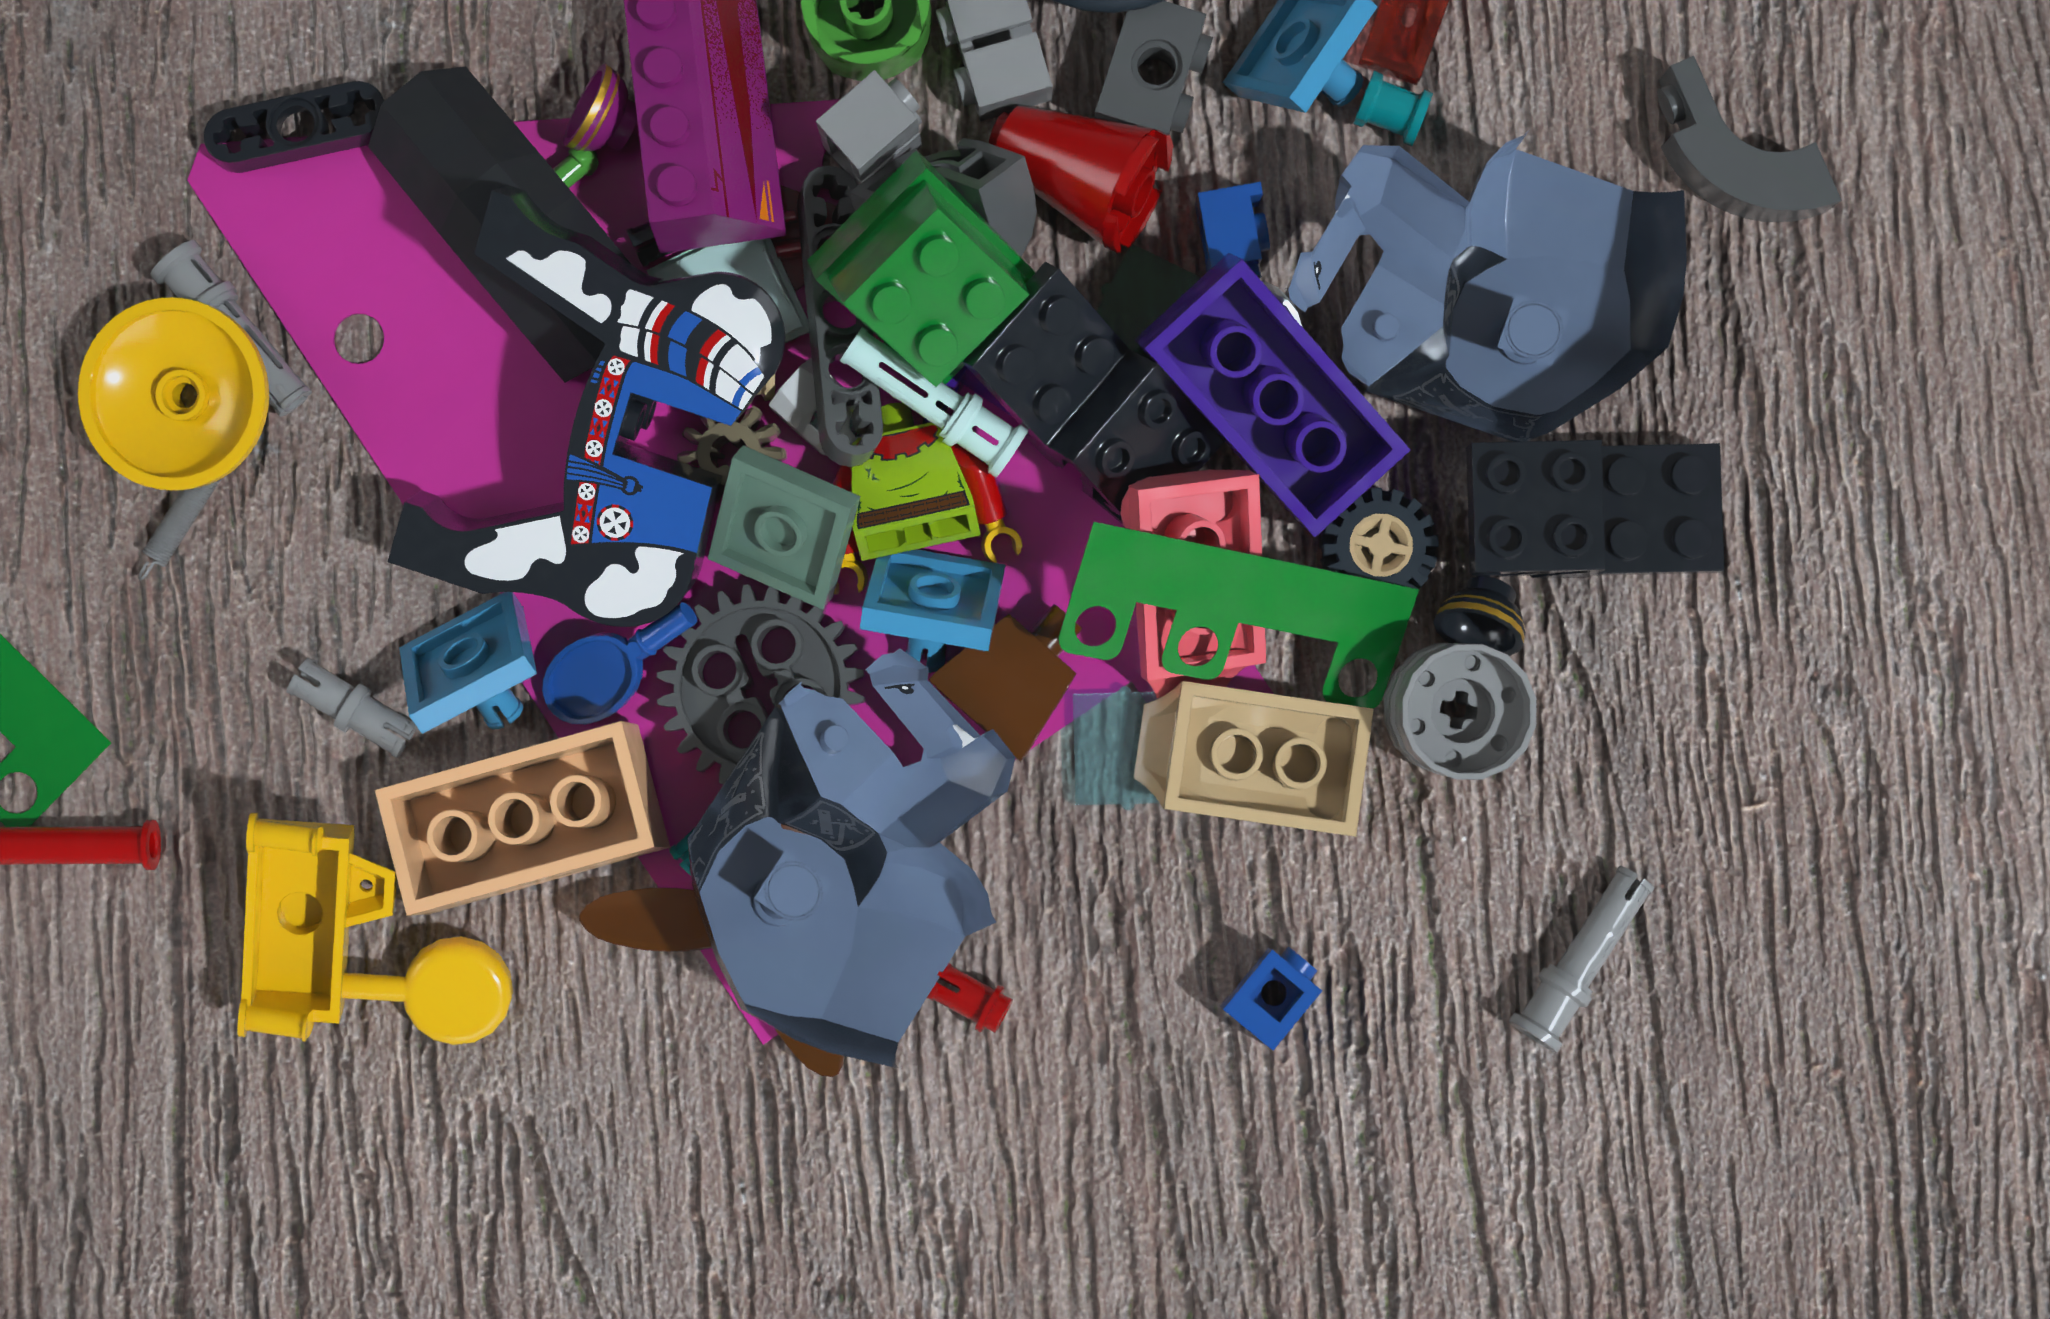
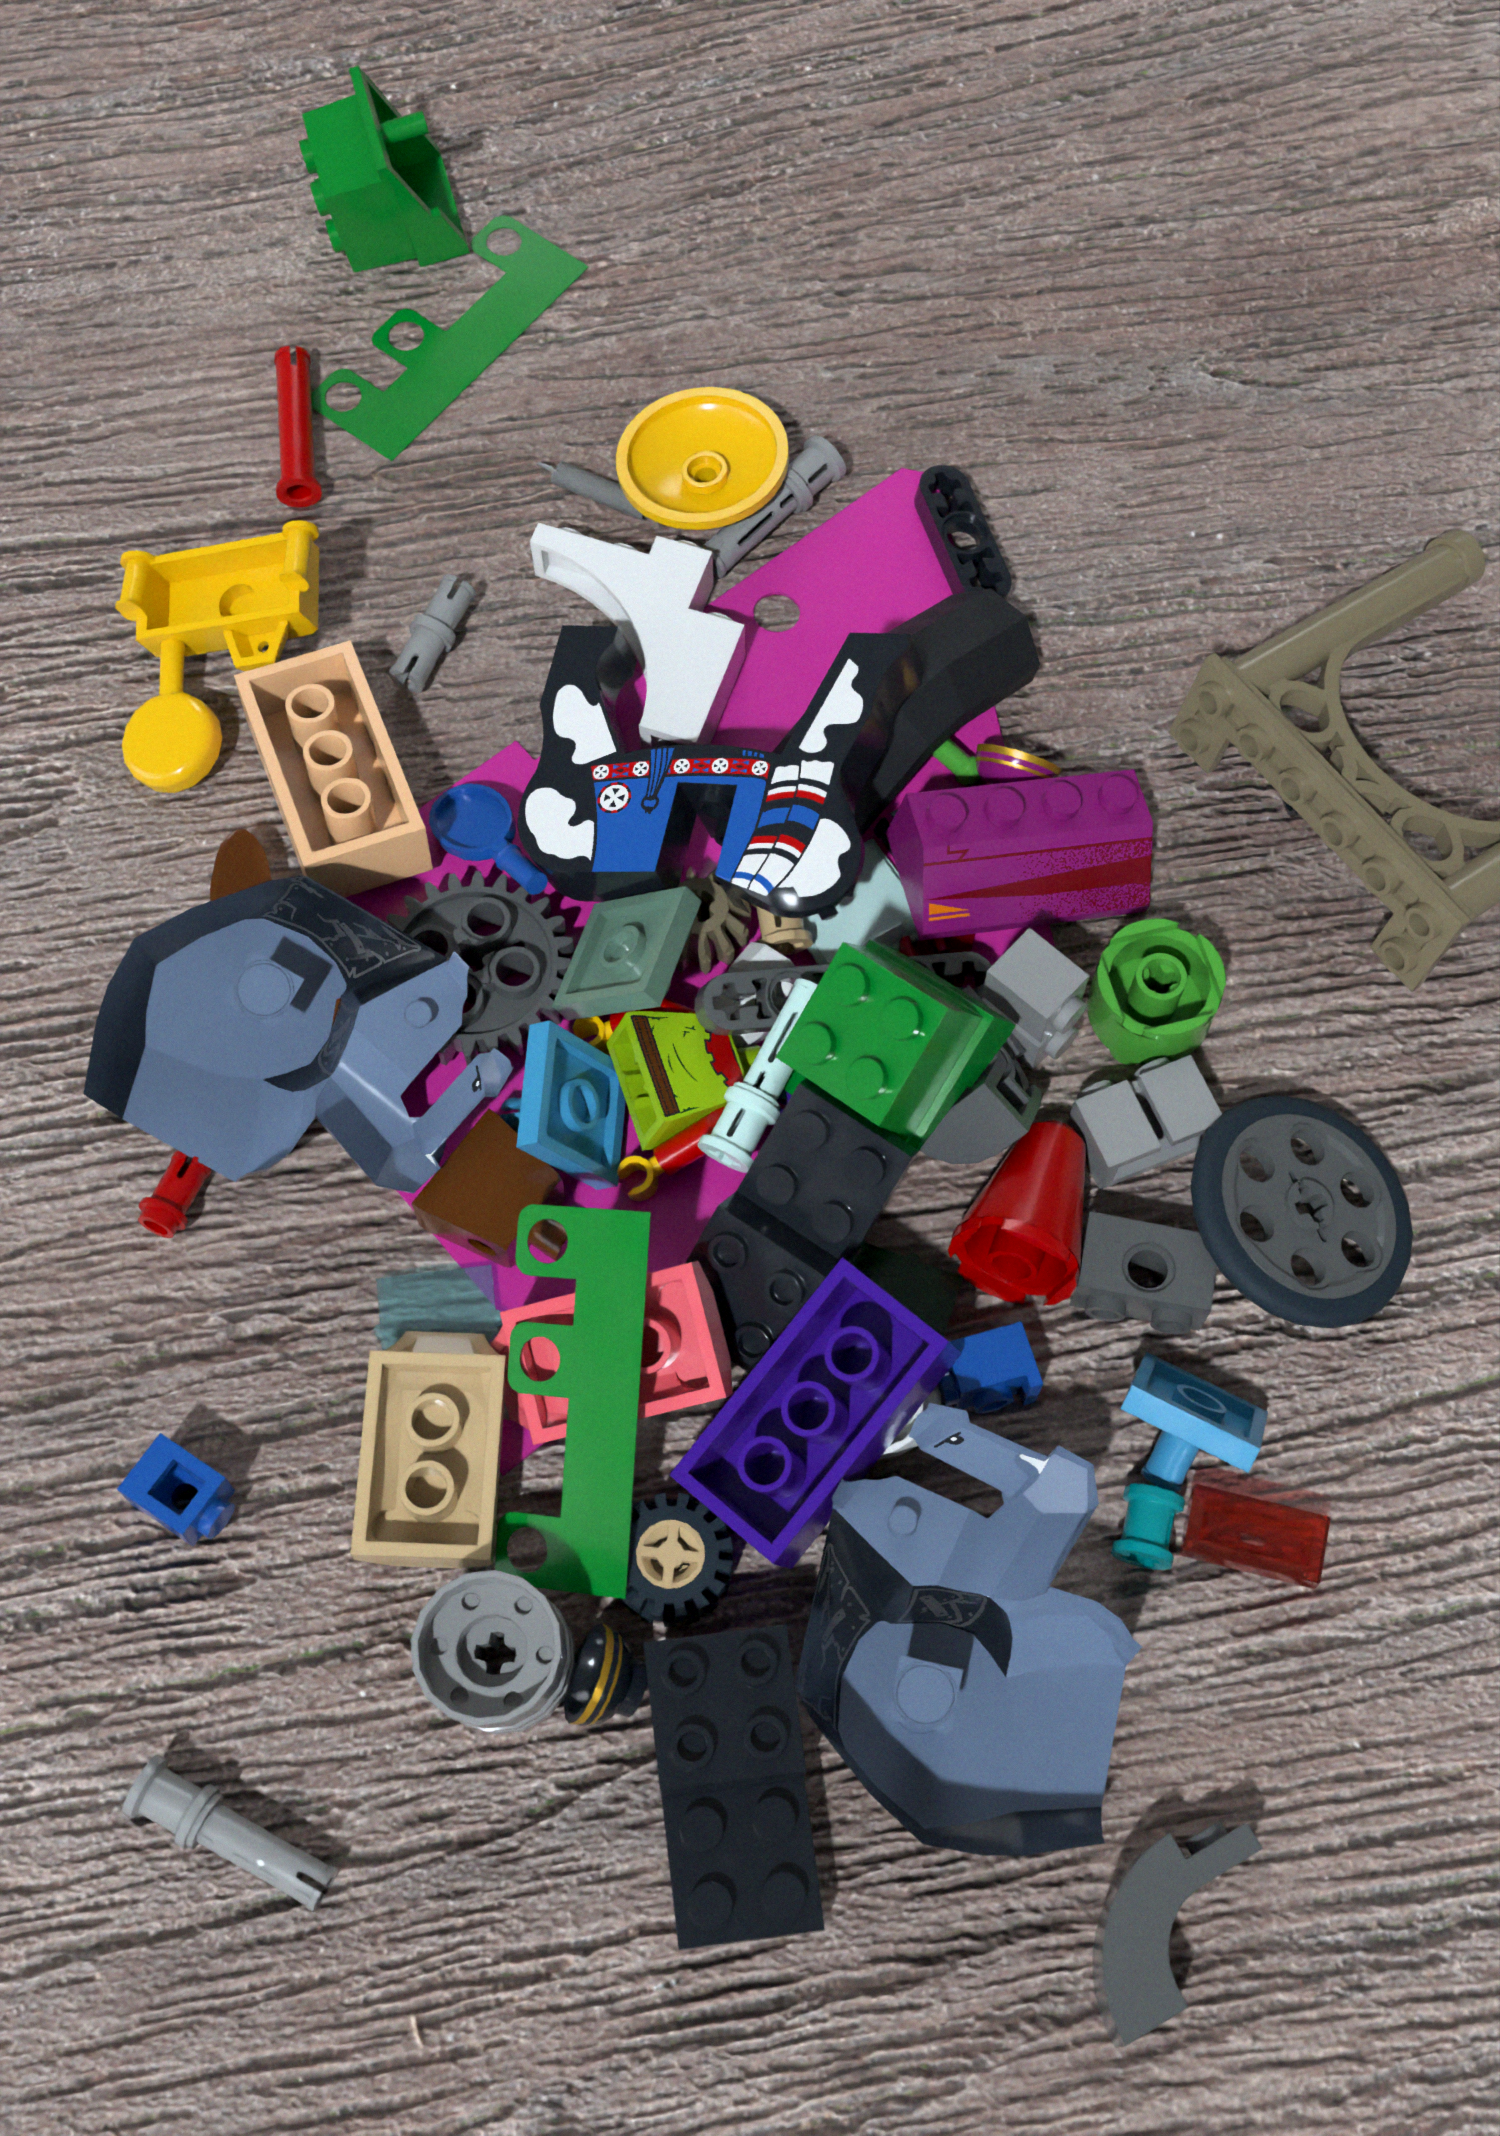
camera: 80 degrees right, 20 degrees down
(344, 465) = (659, 608): none -> white arch
(469, 665) = (475, 710): dark azure tile -> none

